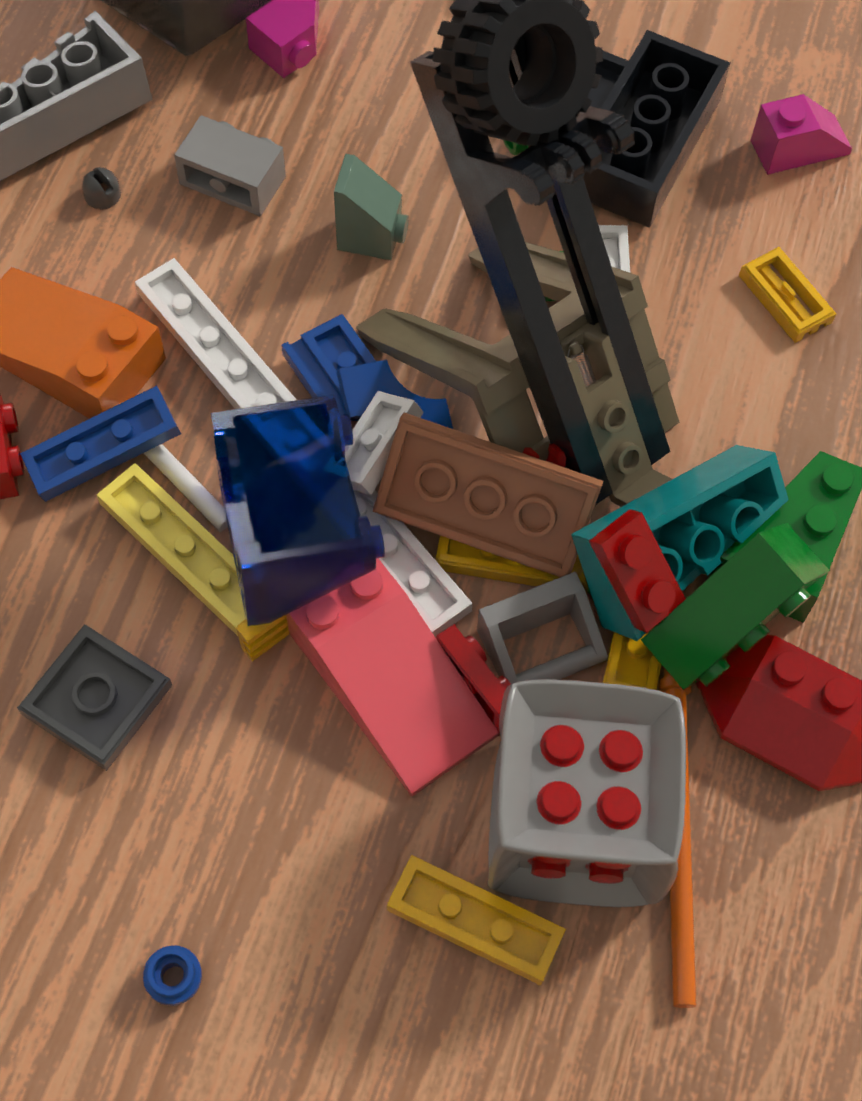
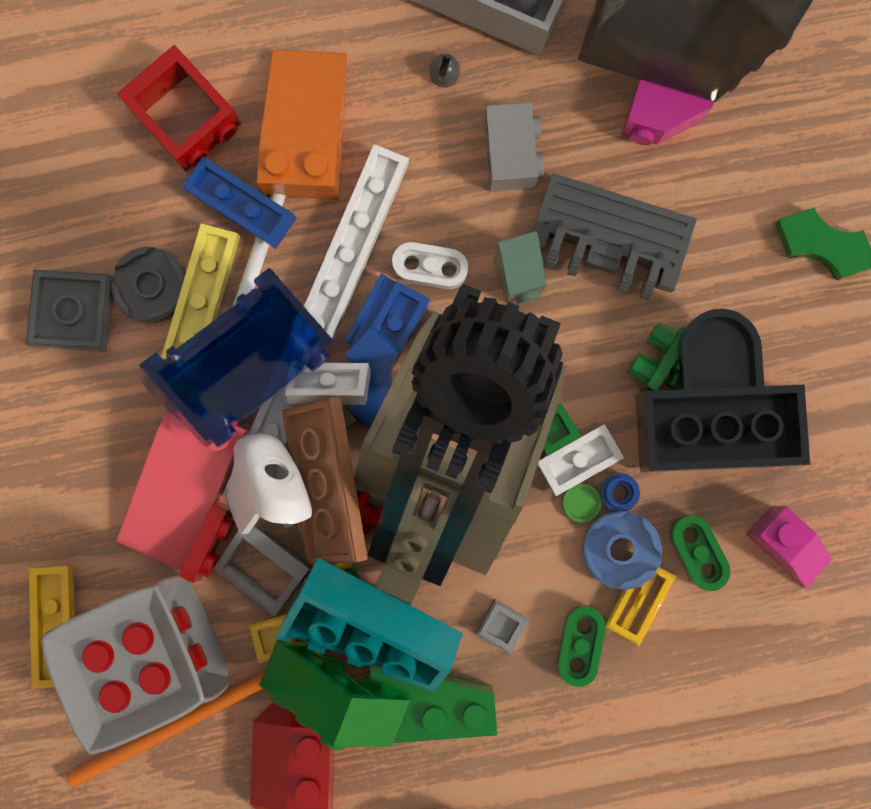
camera: 65 degrees right, 20 degrees up
(125, 596) = (148, 284): none -> dark grey tile
(300, 302) = (431, 262): none -> white plate
(376, 126) = (613, 231): none -> dark grey hinge
(456, 560) = (257, 494): none -> white piece
(637, 570) = (301, 620): red plate -> none
(658, 295) = (581, 503): none -> bright green piece
(665, 243) = (630, 486): none -> blue plate
(732, 301) = (629, 573): none -> medium blue tile
(747, 428) = (502, 626): none -> light grey tile
(764, 213) = (700, 550): none -> green plate
(810, 364) = (582, 645): none -> green plate

